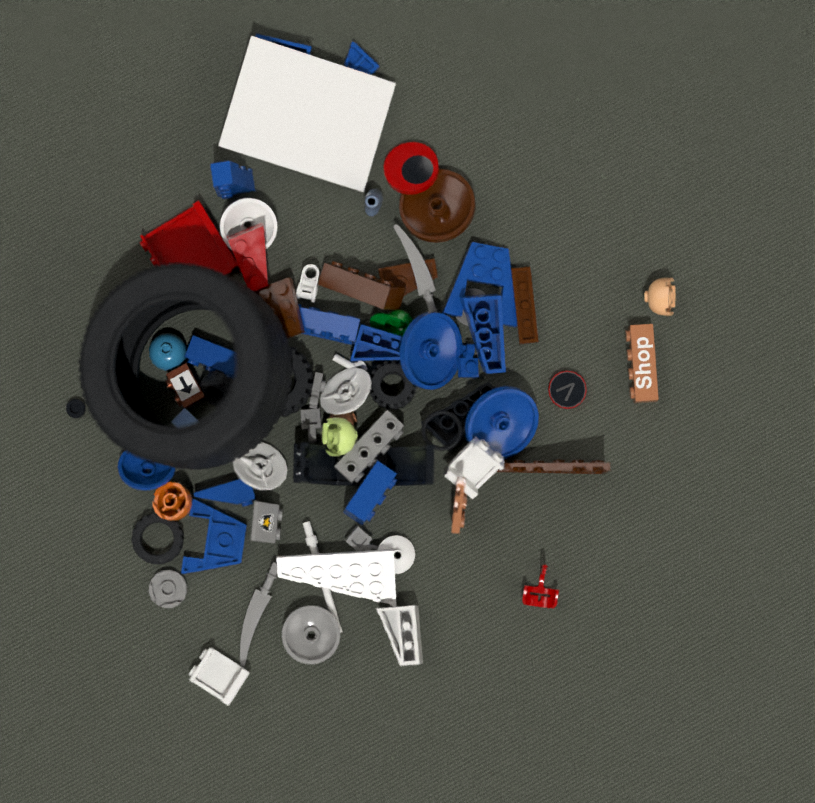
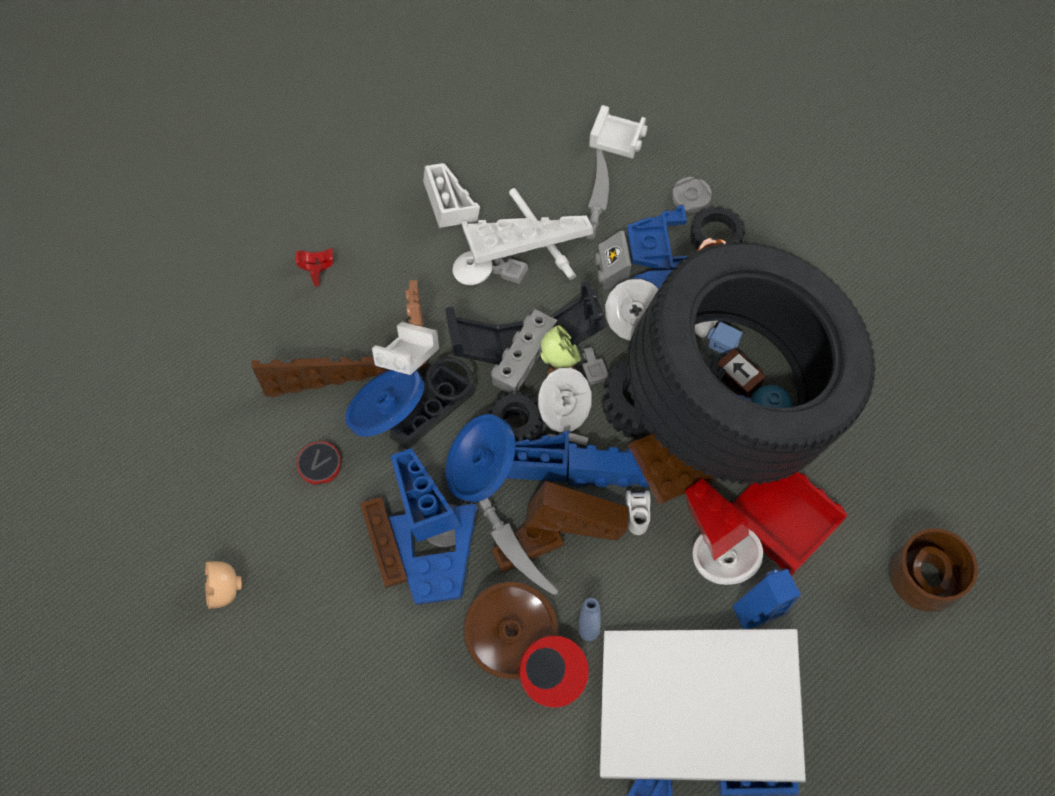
camera: 170 degrees right, 20 degrees down
(83, 154) = (951, 558): none -> reddish brown piece
(296, 632) = (541, 169): light grey dish -> none
(318, 385) = (596, 404): light grey plate -> none
(370, 493) = (512, 305): blue wedge -> none
(394, 322) = (523, 489): green cap -> none
(468, 365) = (435, 463): blue plate -> none
(643, 363) = (234, 507): nougat brick -> none

